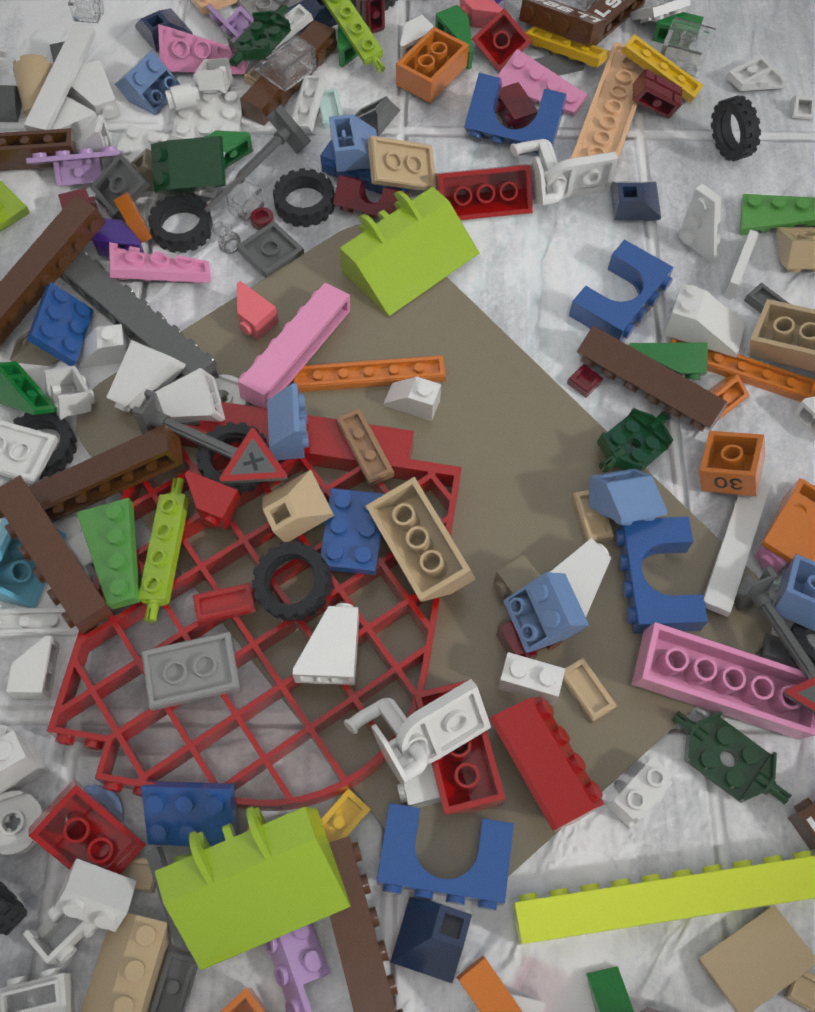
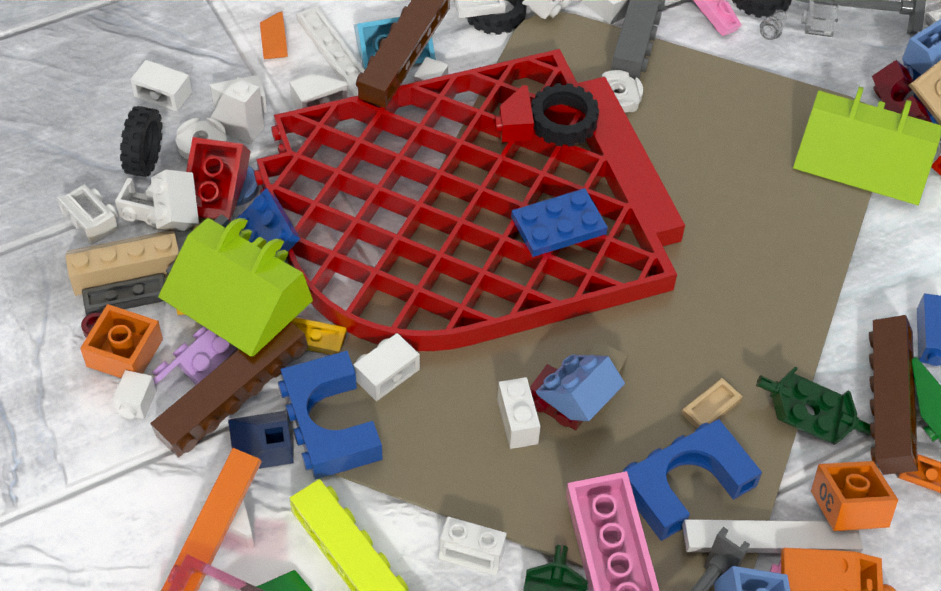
camera: 60 degrees right, 10 degrees down
(109, 473) = (494, 47): reddish brown brick -> none
(112, 546) = (436, 78): bright green wing -> none
(142, 370) = (592, 28): white slope -> none
(163, 550) = (454, 110): lime plate -> none
(190, 671) = (371, 174): light grey tile -> none
(192, 399) = (593, 61): white slope -> none
(224, 603) = (438, 168): red tile -> none
(248, 462) = (563, 121): dark grey piece -> none
(254, 312) = (712, 72): coral slope -> none
(261, 217) = (816, 40): dark red tile -> none
(270, 249) = (788, 58): dark grey plate -> none
(270, 563) = (491, 215): black tyre -> none
(287, 424) = (617, 131): medium blue slope -> none
(294, 345) = (703, 111): bright pink brick -> none
(296, 507) = (546, 170): tan slope -> none
(298, 180) = (860, 39): black tyre -> none
(332, 649) = (446, 249): white slope -> none
(364, 447) = (641, 196): medium nougat tile -> none
(369, 373) = (723, 180): orange tile -> none
(414, 397) = (724, 220): white slope -> none
(420, 542) = (578, 265): tan slope -> none
(428, 731) = (415, 334): white plate -> none
(467, 775) = (422, 381): red slope -> none
(547, 762) = (447, 447): red slope -> none
(585, 380) = (854, 348): dark red tile -> none
(585, 571) = (638, 415): white slope -> none
(588, 690) = (539, 467): tan tile -> none
(626, 496) = (742, 409): medium blue slope -> none

